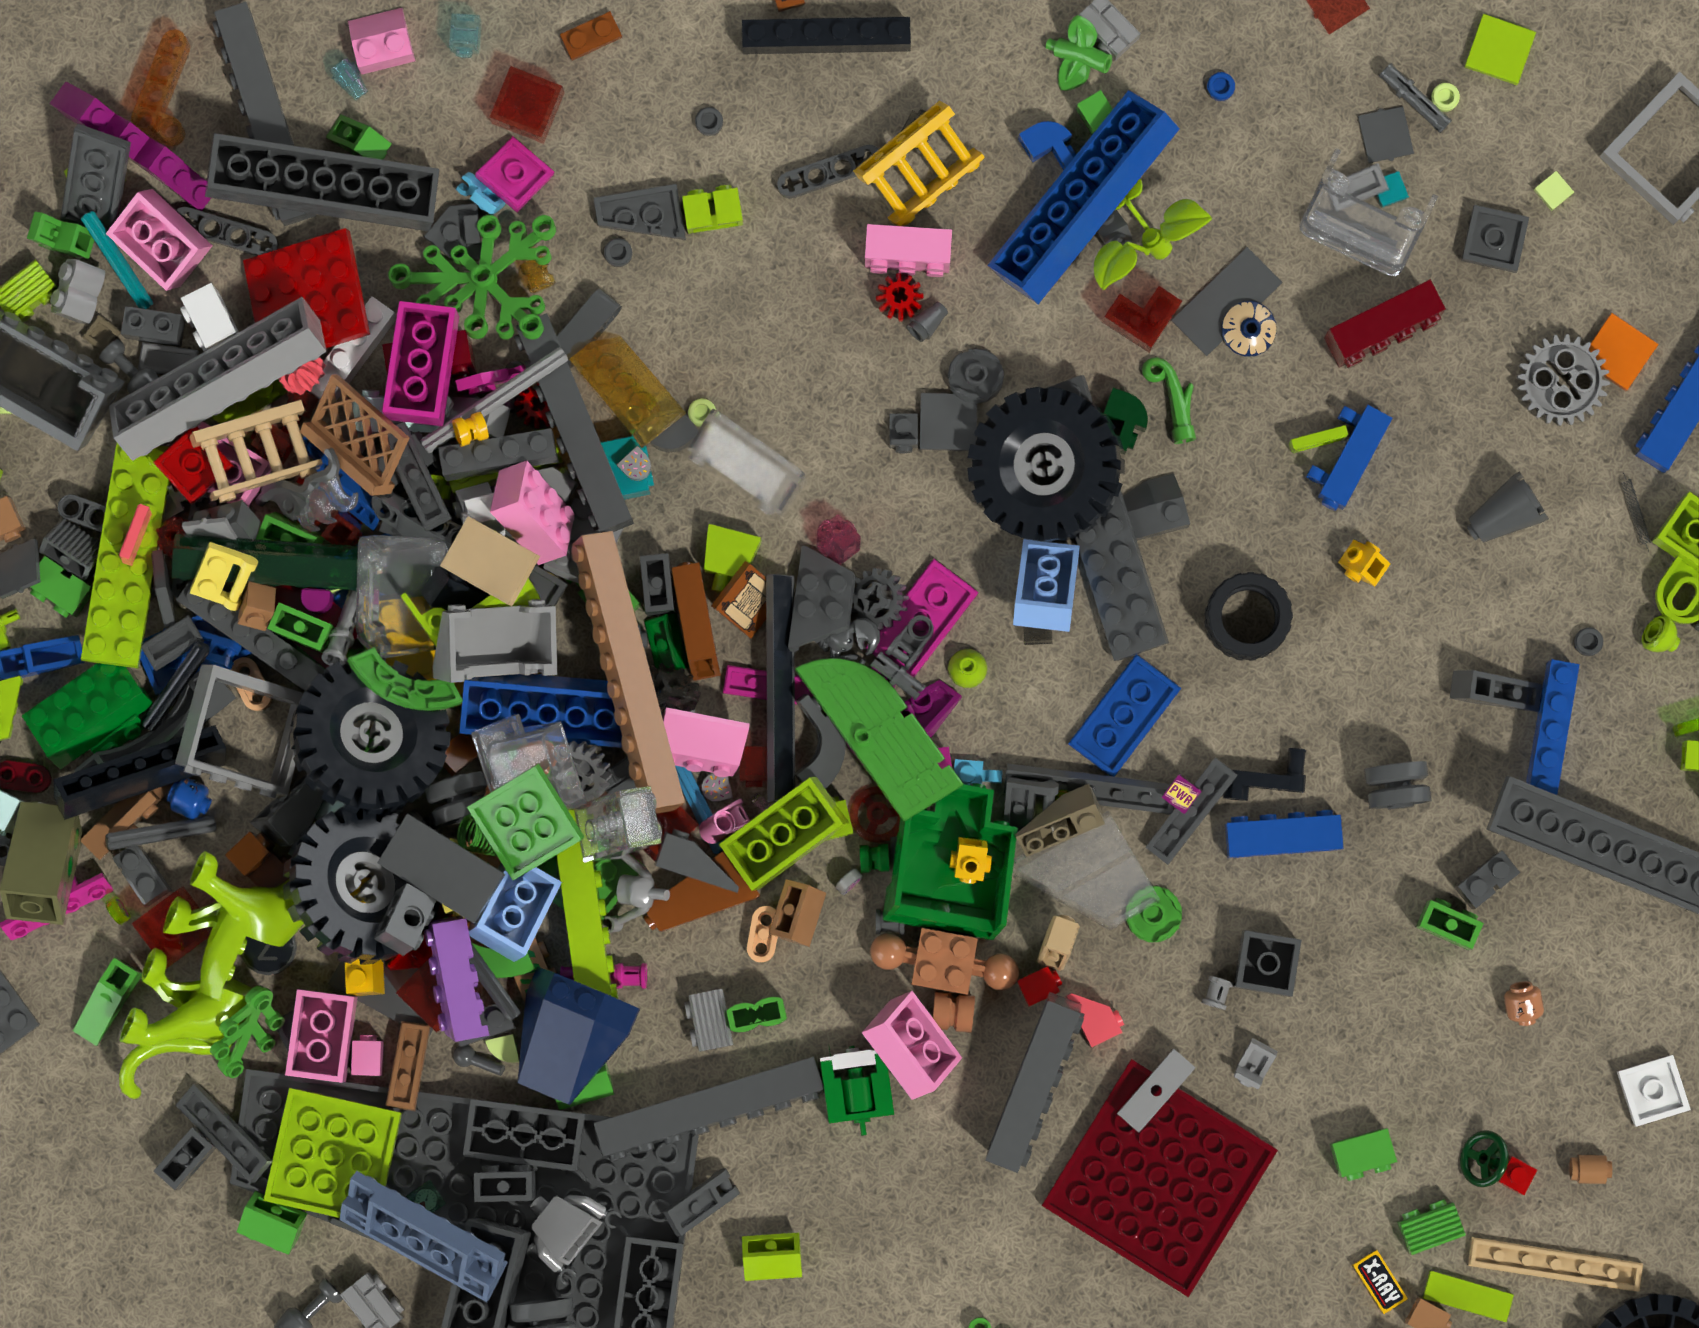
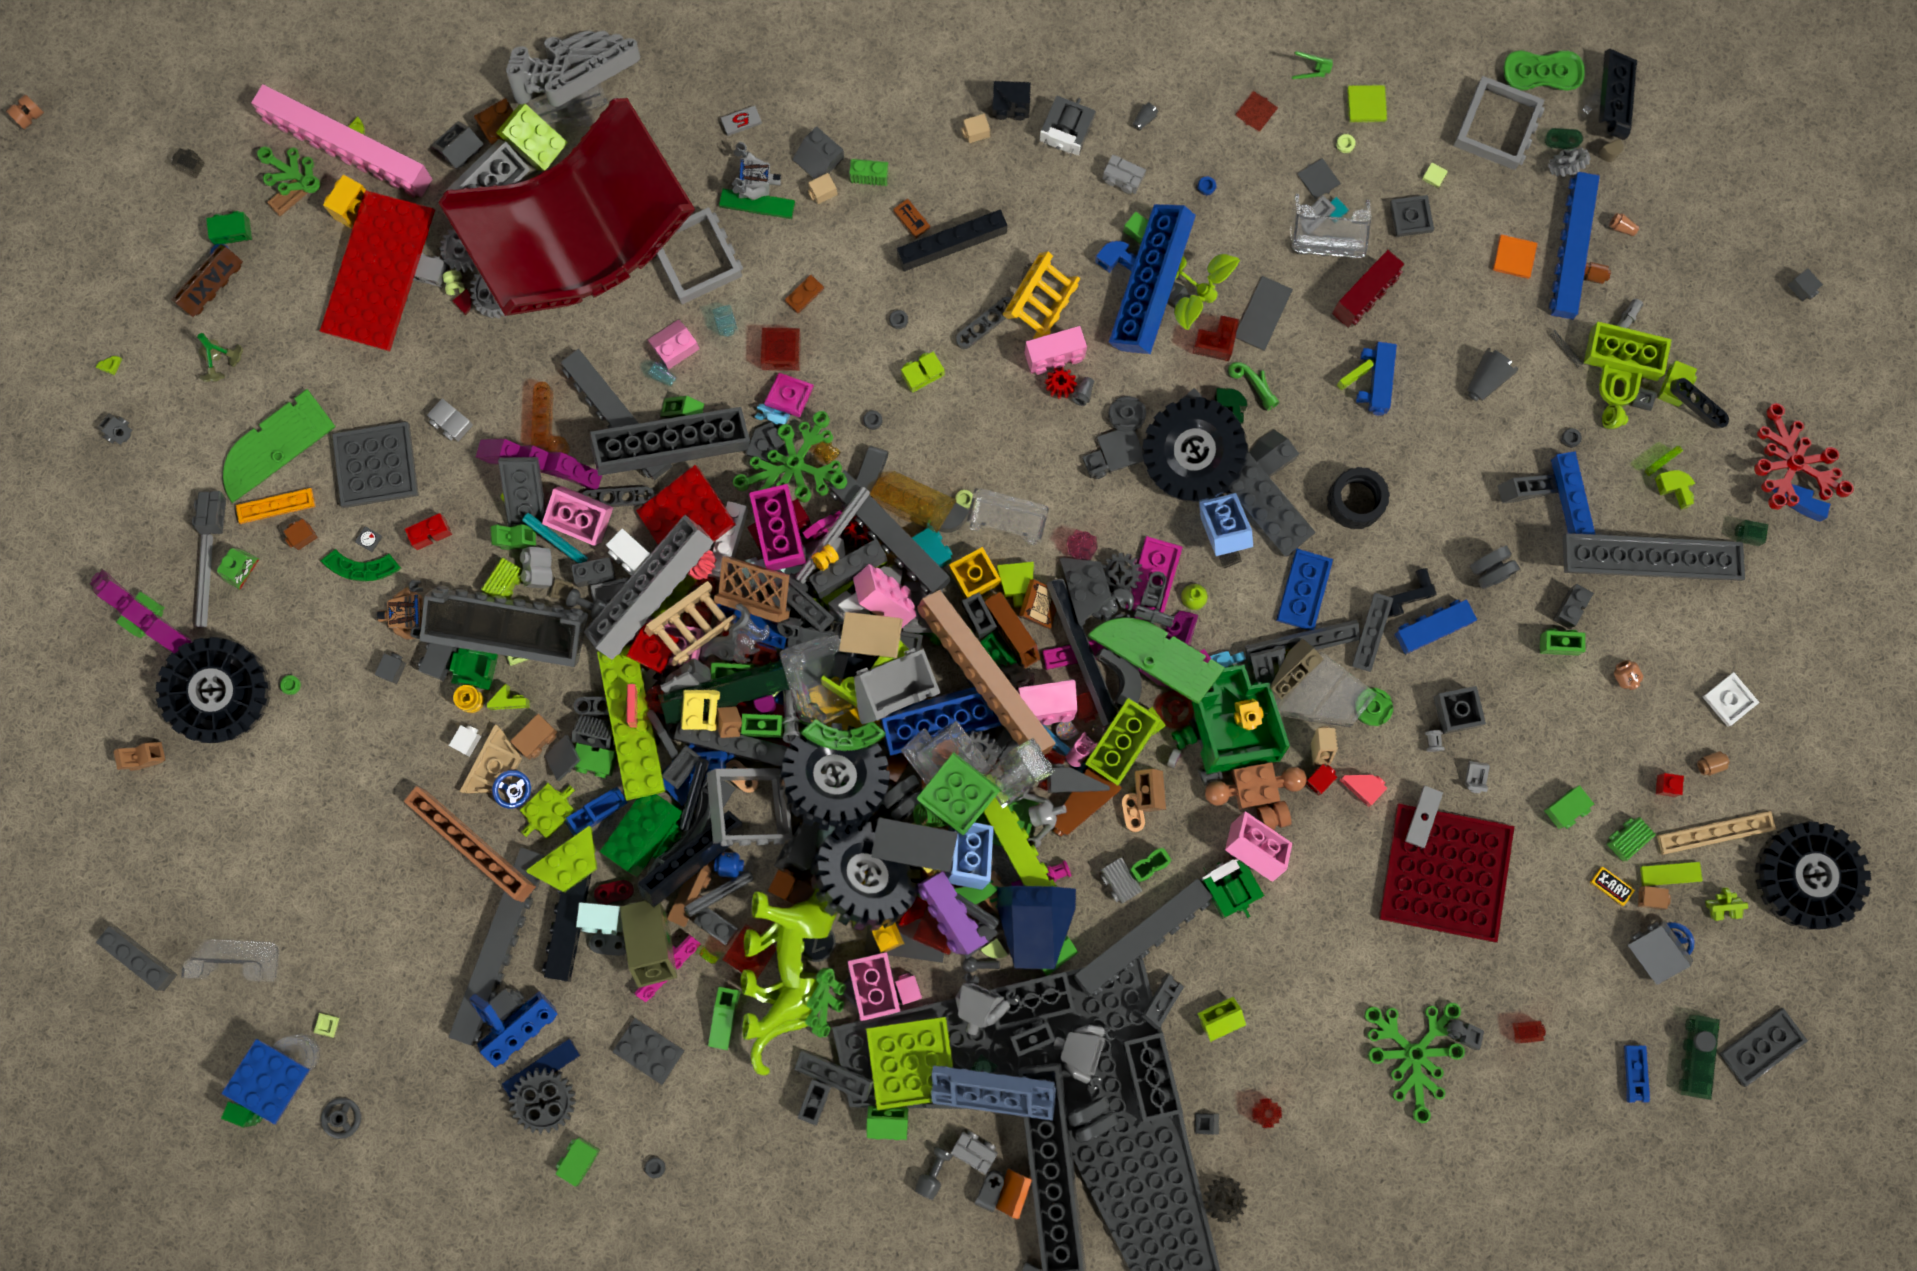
camera: 25 degrees left, 5 degrees down
(33, 37) = (450, 420): none -> light grey brick
(395, 931) = (899, 896): dark grey brick -> none
(408, 1066) = (937, 985): medium nougat tile -> none
(452, 1115) = (980, 1005): none -> light grey torso
(635, 465) = (937, 544): light grey tile -> none
(643, 211) = (879, 389): dark grey wing -> none
(673, 524) = (975, 573): none -> yellow brick
(1033, 1083) = (1346, 841): dark grey brick -> none
(1078, 54) = (1112, 196): bright green plant -> none
(1181, 793) = (1363, 623): tile -> none
(1236, 334) = (1278, 329): tan dish -> none
(1360, 558) = (1415, 439): yellow brick -> none
(1415, 97) = (1327, 149): dark grey pin -> none
(1492, 1159) = (1654, 782): dark green piece -> none
(1582, 363) = (1497, 269): light grey gear -> none

